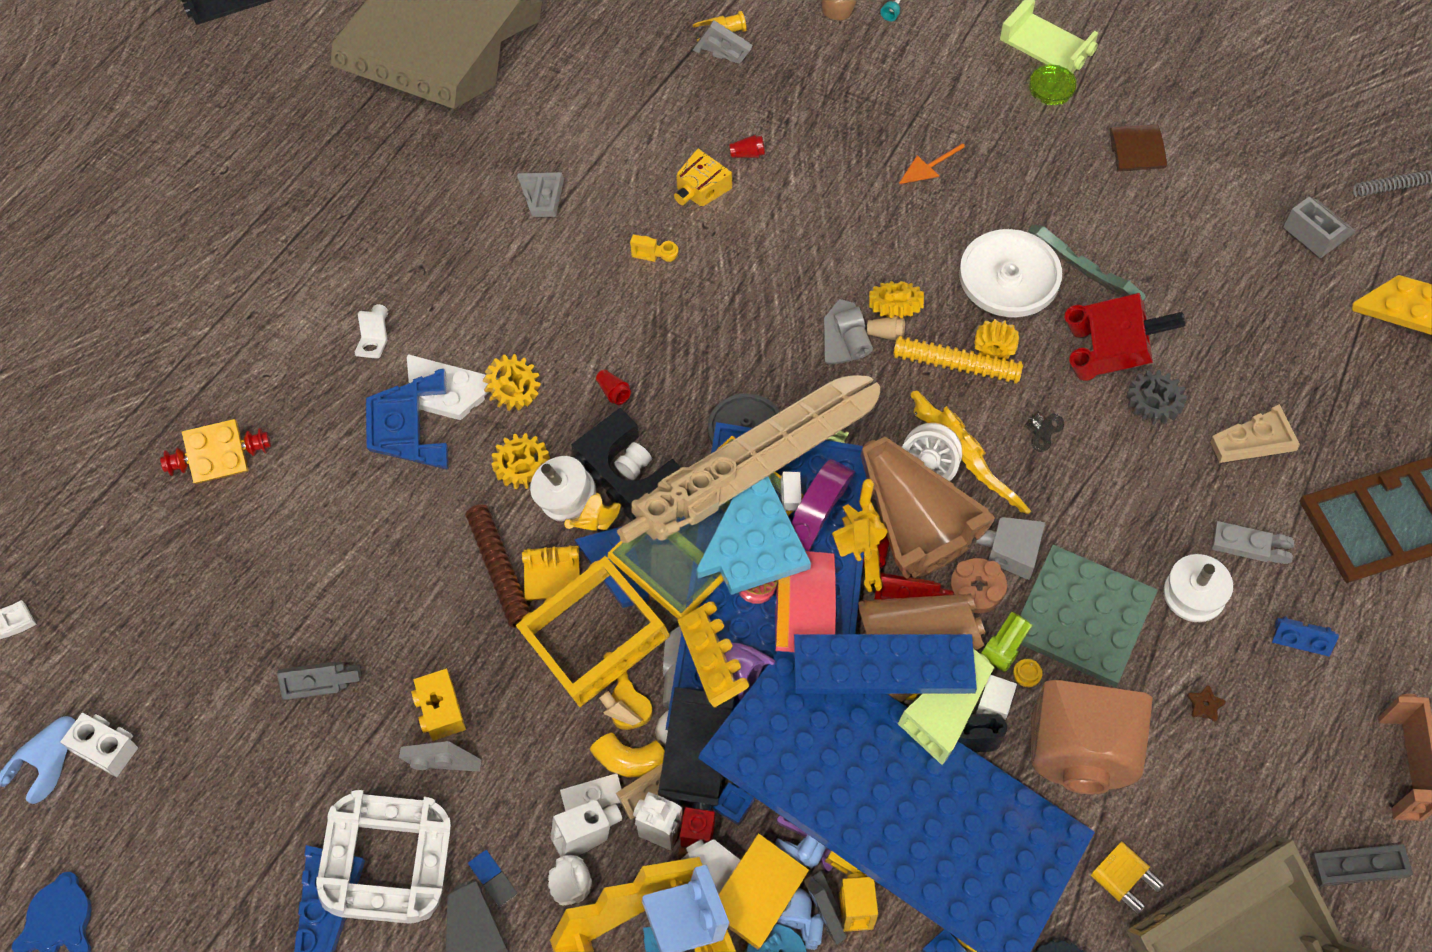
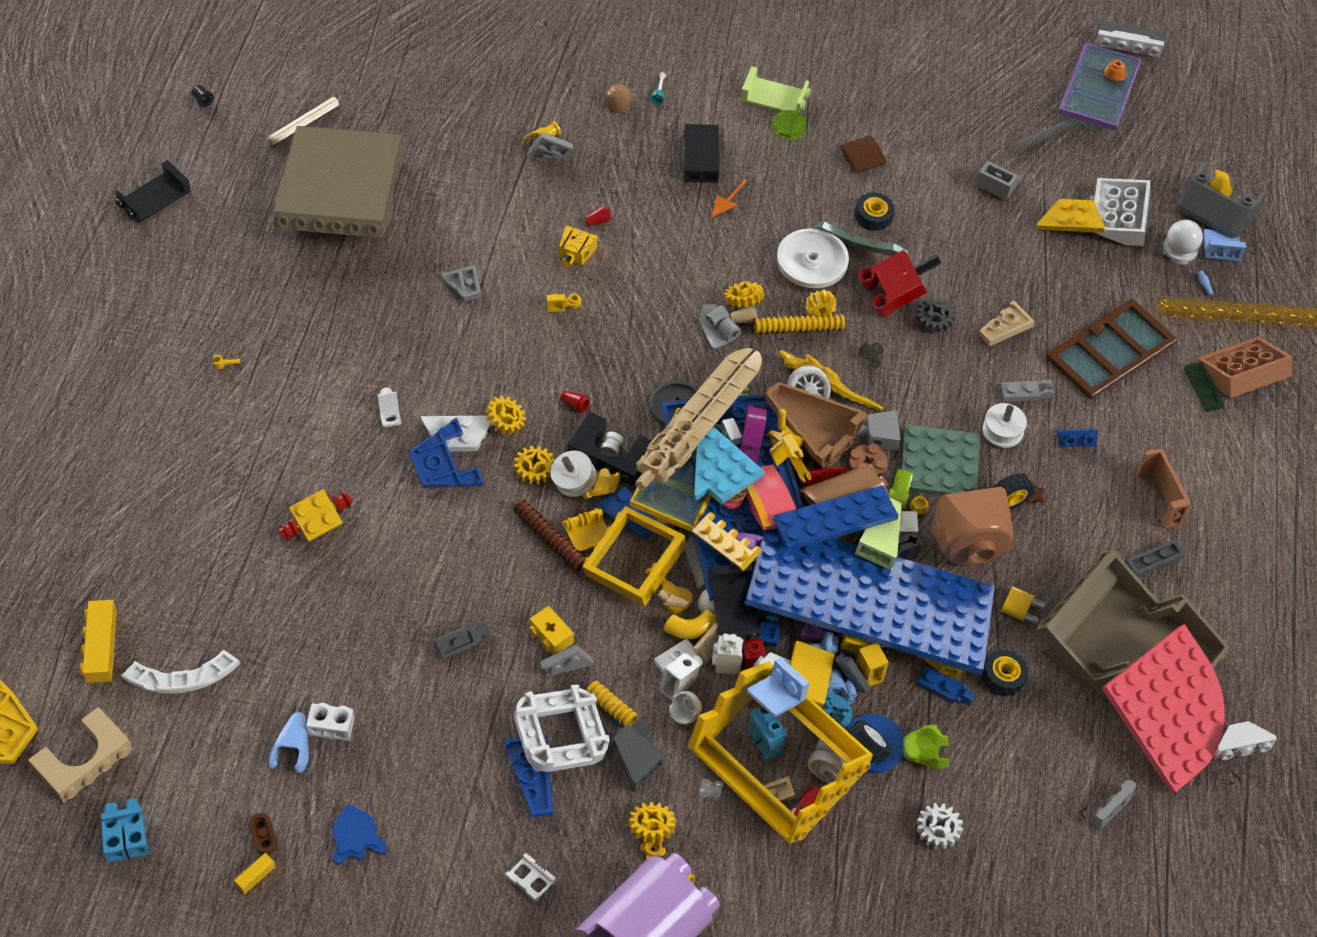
camera: 25 degrees left, 5 degrees down
(203, 220) = (219, 363): none -> yellow hand
(472, 840) = (612, 704): none -> yellow piece
(916, 95) = (701, 153): none -> black panel
(1124, 228) = (874, 211): none -> black wheel
(1174, 694) = (1017, 488): none -> black wheel

